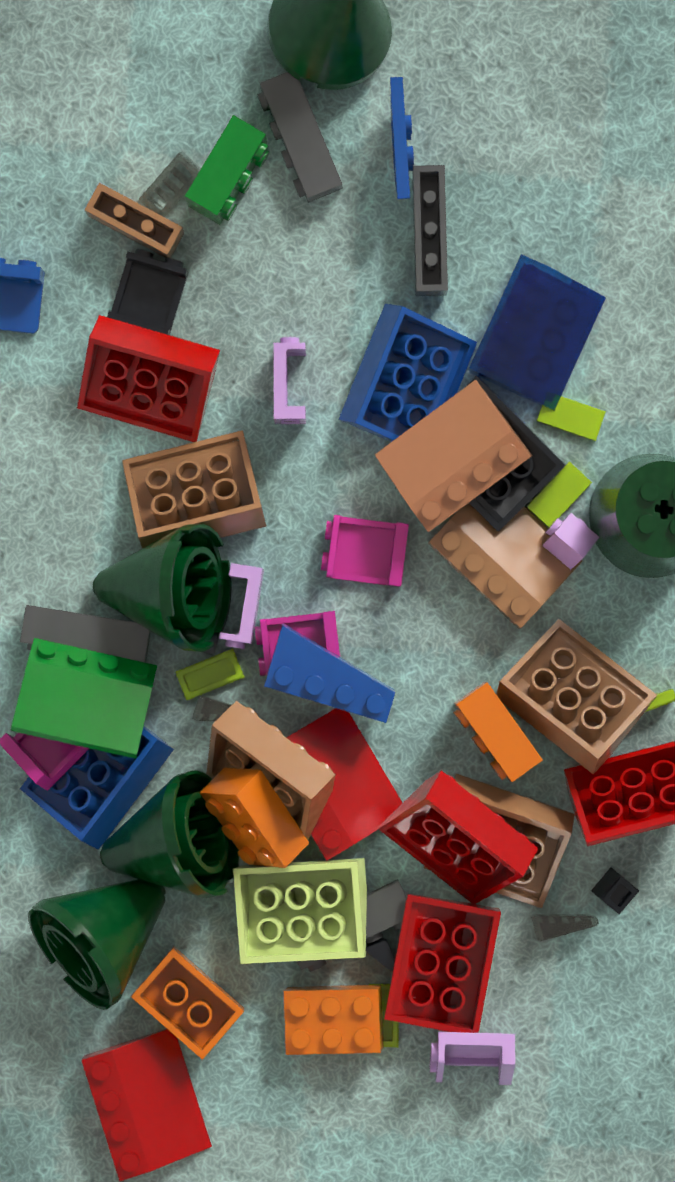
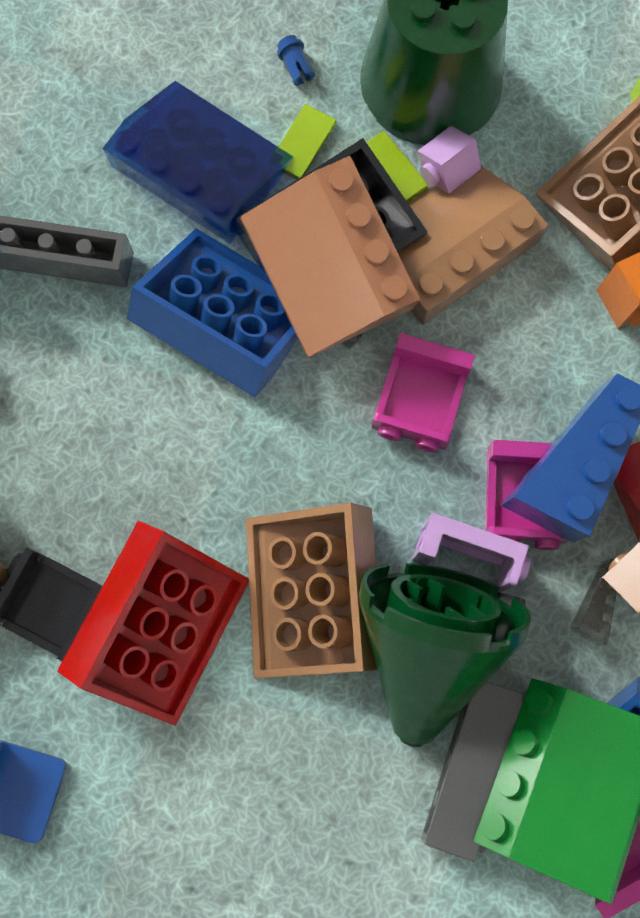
camera: 85 degrees left, 10 degrees down
(209, 674) = (549, 623): lime tile -> none
(282, 413) = (194, 453): lavender panel -> none
(644, 396) = (291, 51): none -> blue pin

